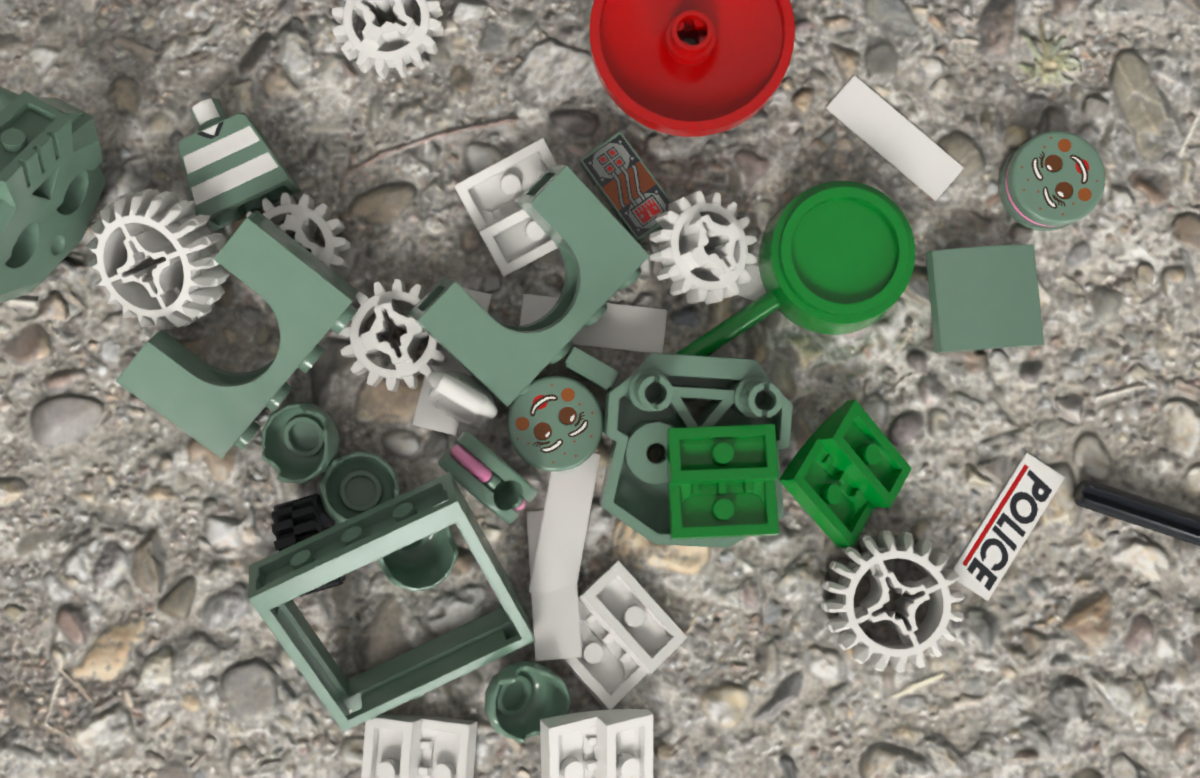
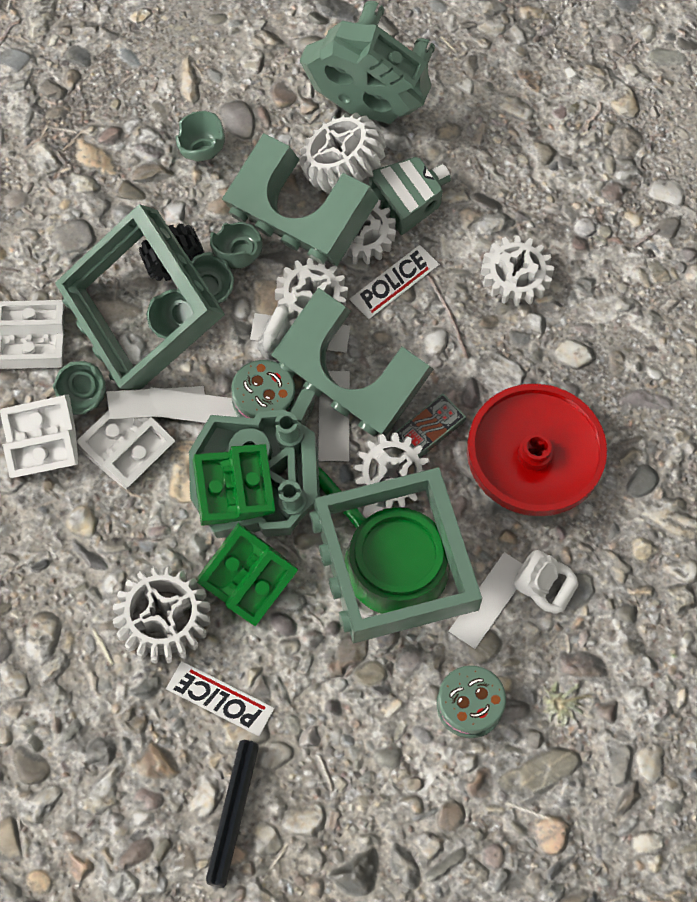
camera: 80 degrees right, 20 degrees down
(97, 482) = (200, 136): none -> sand green hair
(380, 210) = (394, 281): none -> white sticker
(487, 477) = (223, 350): sand green head -> none
(492, 205) = (417, 342): white slope -> none
(855, 168) = (432, 482): none -> sand green window
(874, 63) = (538, 576): none -> white piece
(984, 298) = (381, 668): sand green slope -> none

